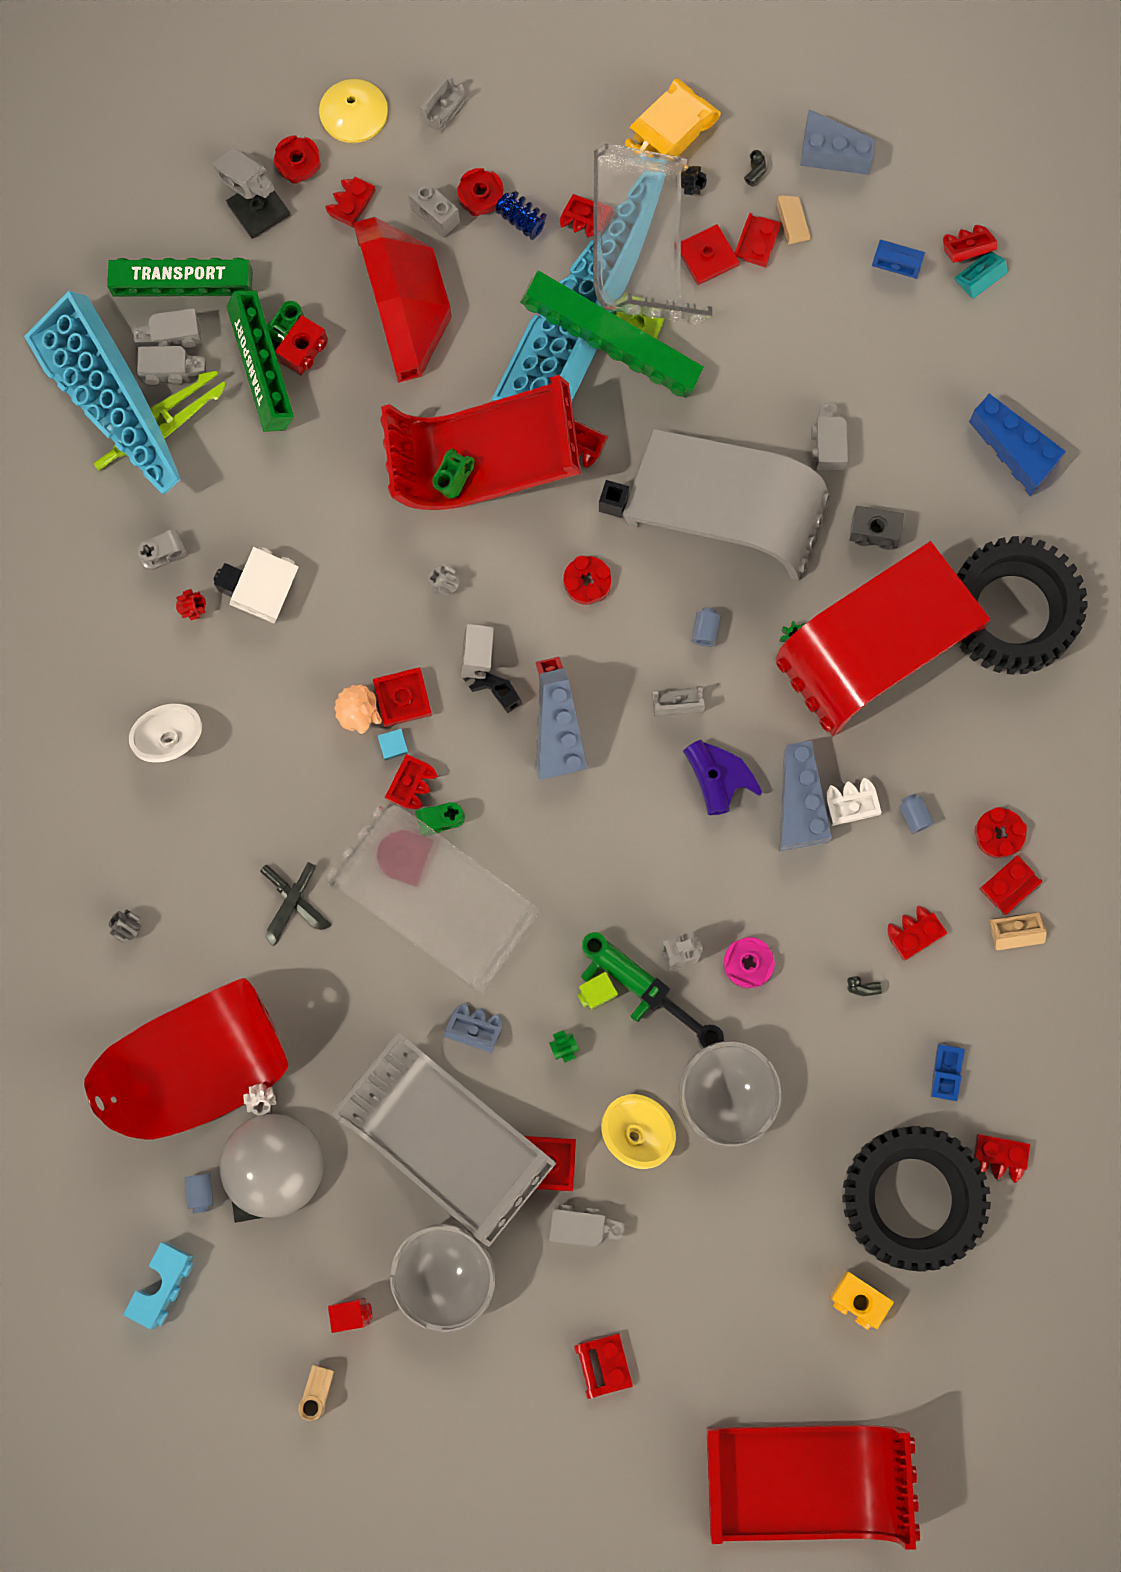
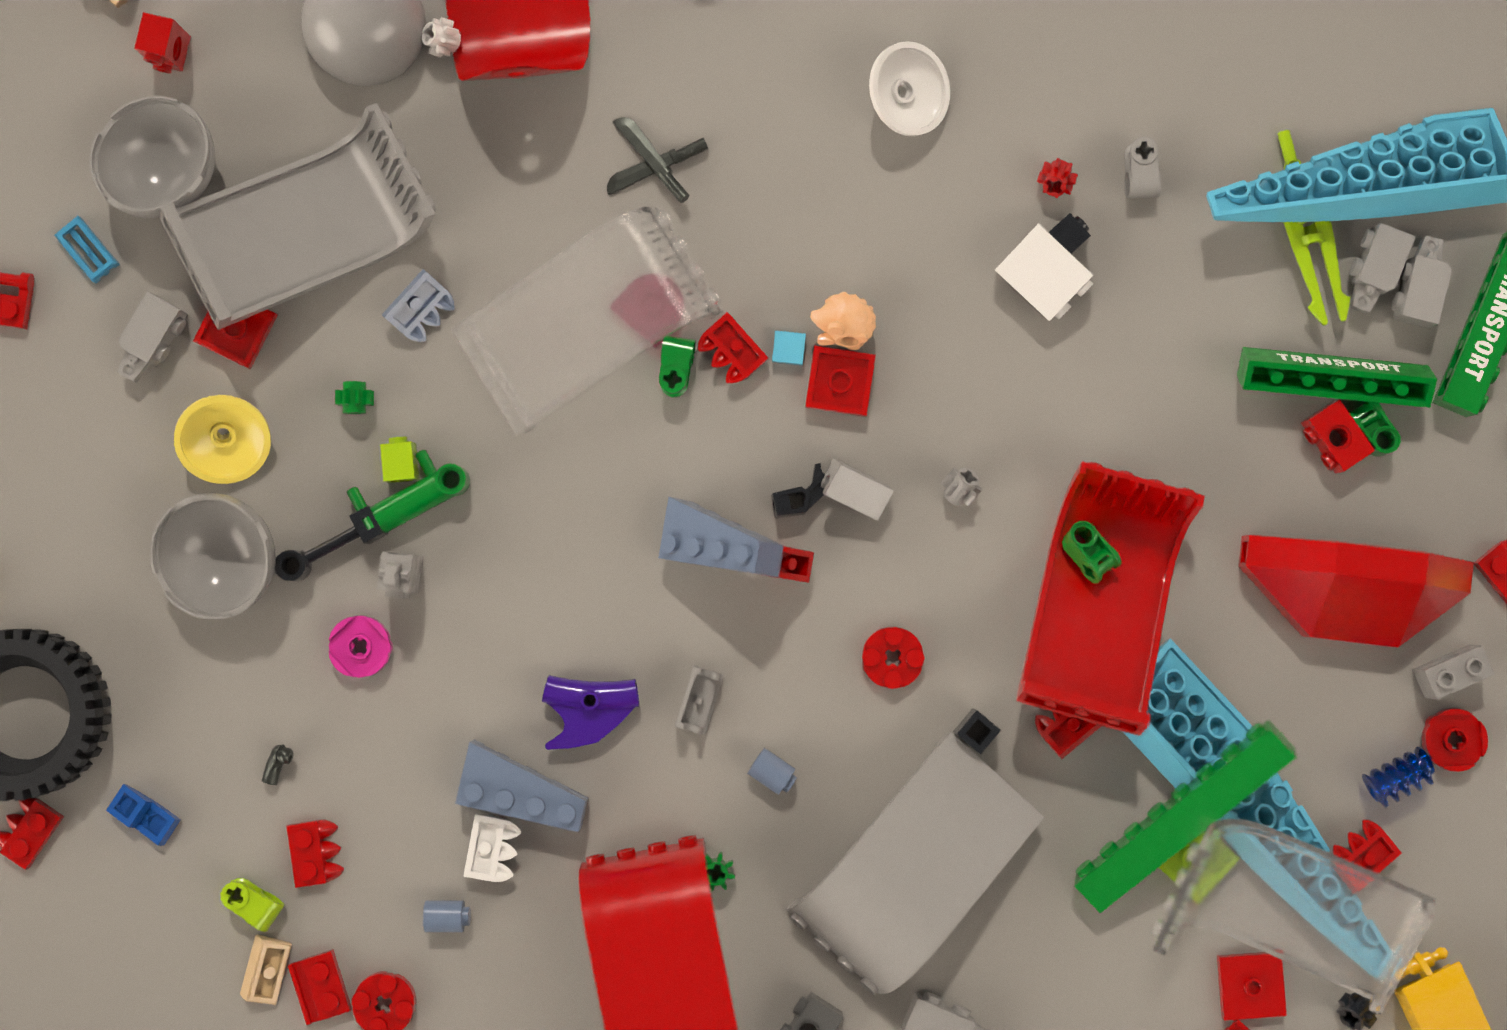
camera: 110 degrees right, 10 degrees up
(546, 1290) = (103, 269): none -> dark azure tile
(973, 955) = (255, 905): none -> lime piece

